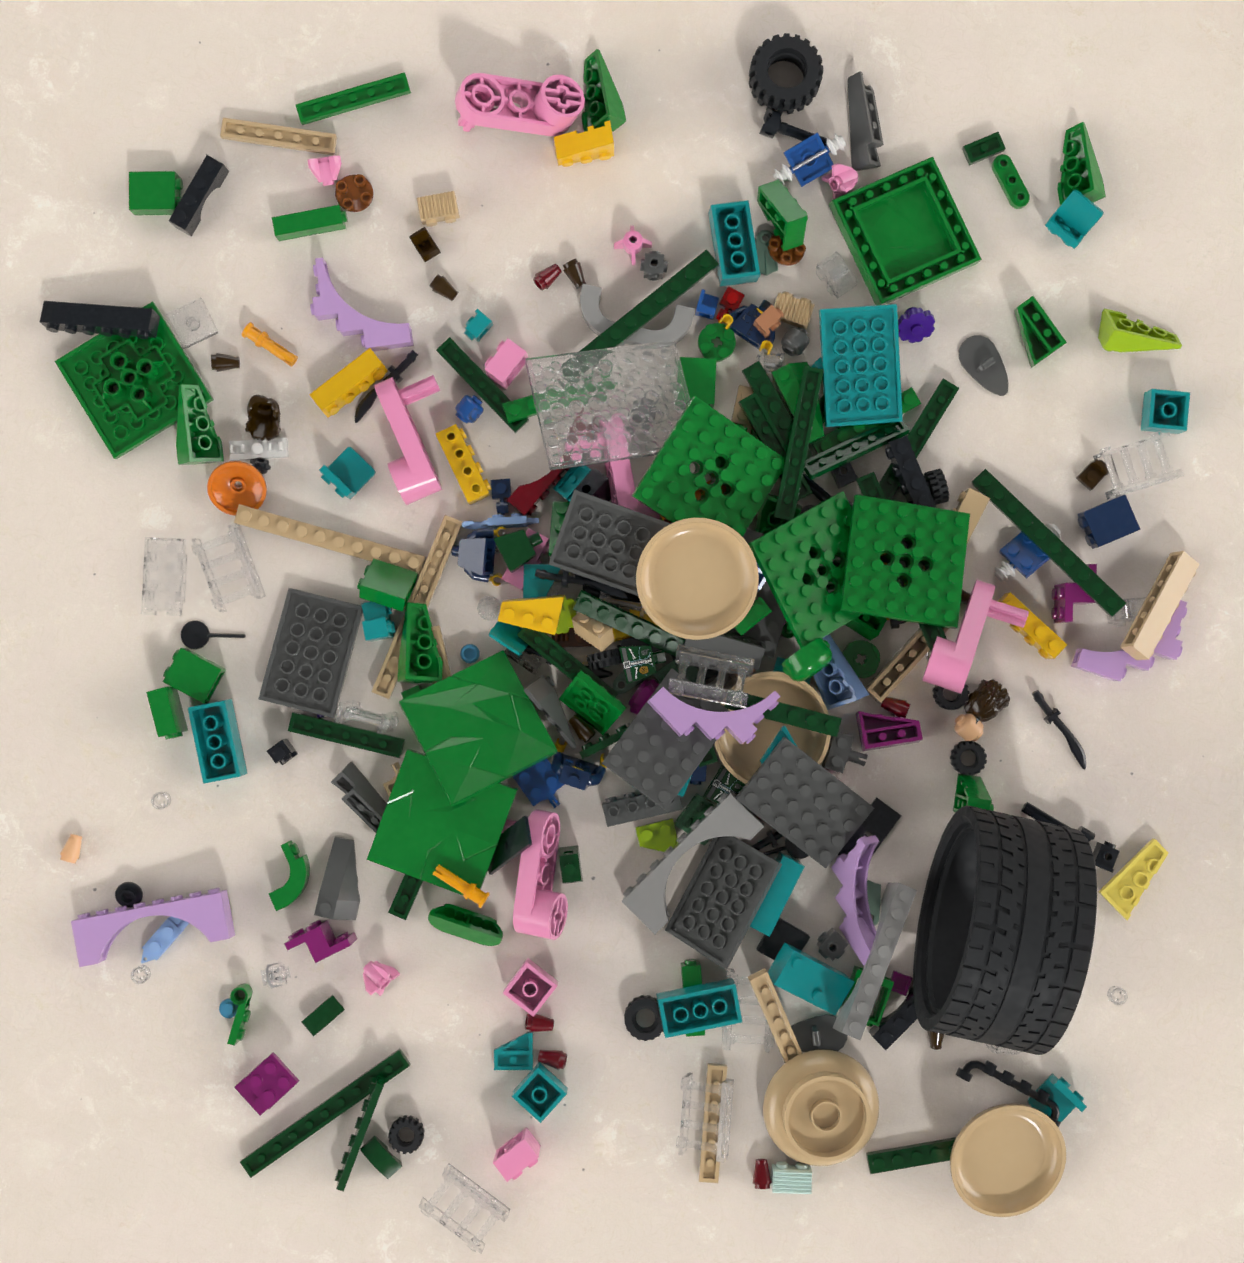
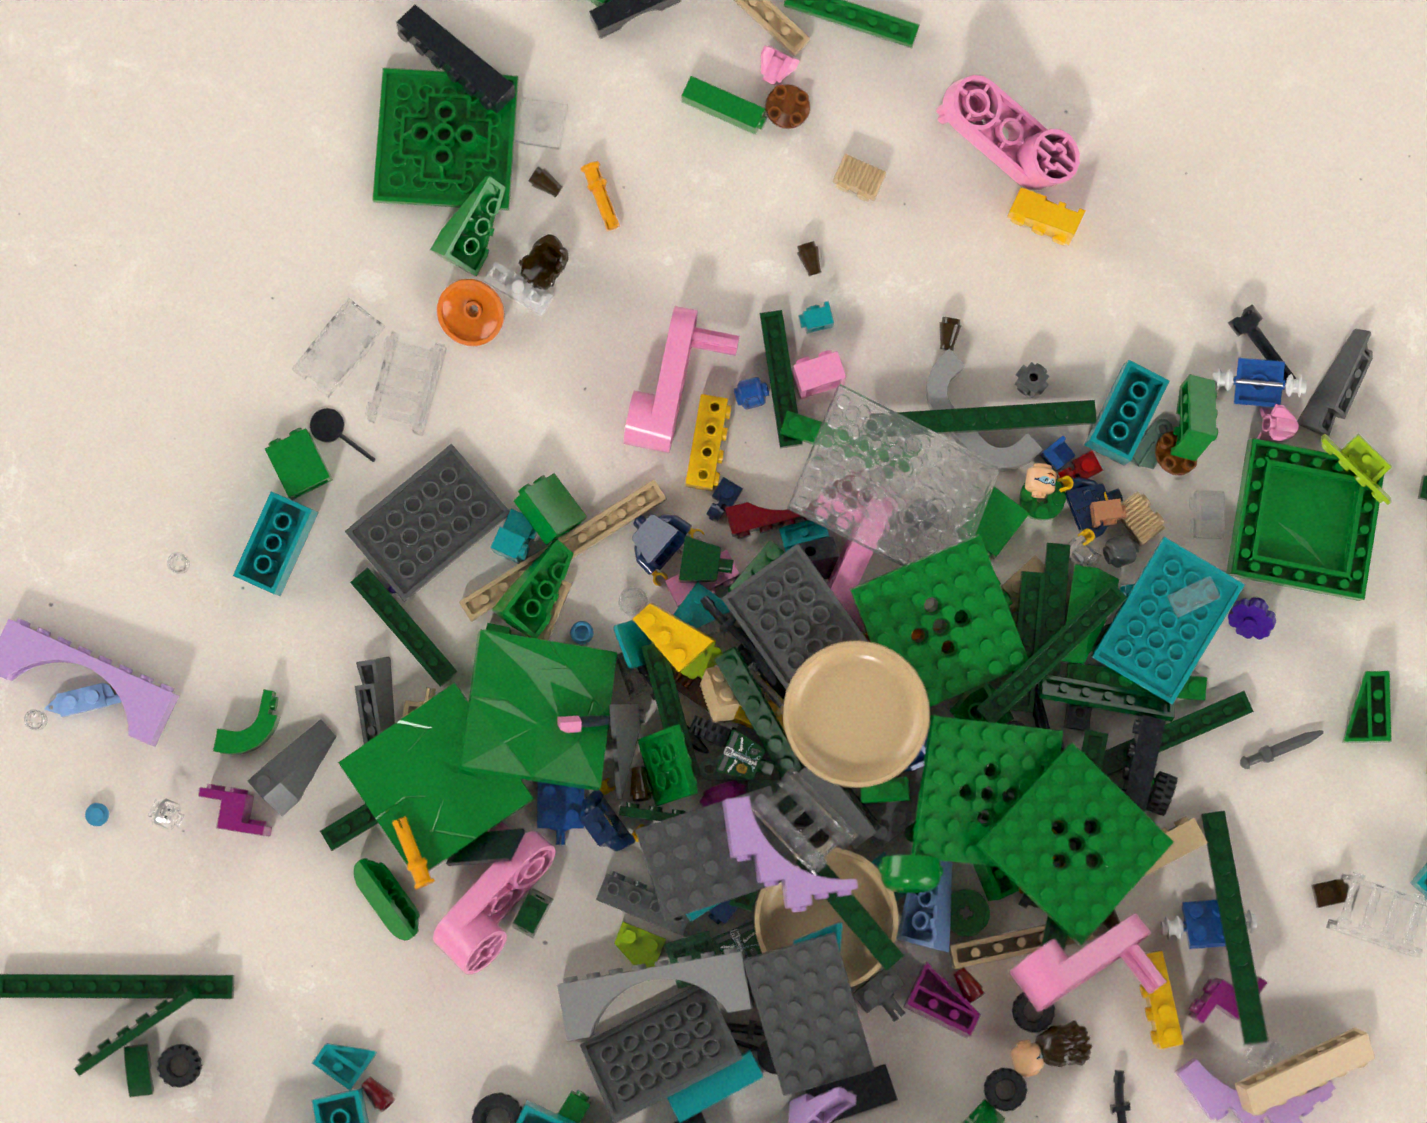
camera: 40 degrees right, 5 degrees down
(71, 850) = (58, 549): light nougat cone -> none
(128, 894) = (81, 632): black piece -> none
(167, 712) = (247, 482): green brick -> none
(242, 1015) = (106, 829): green plate -> none
(261, 464) = (510, 305): black plate -> none
(266, 1083) = (80, 915): magenta bracket -> none
(282, 752) = (330, 599): black brick -> none
(322, 1015) = (182, 887): dark green slope -> none
(327, 538) = (523, 422): tan plate -> none
(330, 305) = (712, 257): lavender arch -> none
(348, 473) = (588, 372): teal bracket -> none
(349, 383) = (651, 286): yellow brick -> none
(351, 711) = (426, 607): clear fence -> none
(369, 399) = (660, 315): black sword -> none
(378, 976) = (264, 888): bright pink brick -> none
(424, 244) = (821, 203): dark brown bracket -> none
(508, 719) = (574, 723): none -> piece
(515, 521) = (717, 533): light blue plate -> none
(530, 987) = (407, 1005): bright pink brick -> none
(538, 1023) = (388, 1048): dark red cone -> none
(546, 277) = (919, 317): dark red cone -> none
(601, 95) = (1096, 179): green wedge -> none
(633, 248) = (1026, 349): bright pink brick -> none
(708, 330) = (1040, 480): none -> light nougat head
(794, 51) = (1314, 262): black tyre -> none
(868, 336) = (1193, 596): none -> clear tile
(917, 163) = (1363, 461): none -> lime bracket
(984, 364) = (1296, 702): dark grey shield -> none
(988, 409) = (1268, 753): none -> dark grey sword
(1108, 522) = (1312, 951): dark blue brick -> none

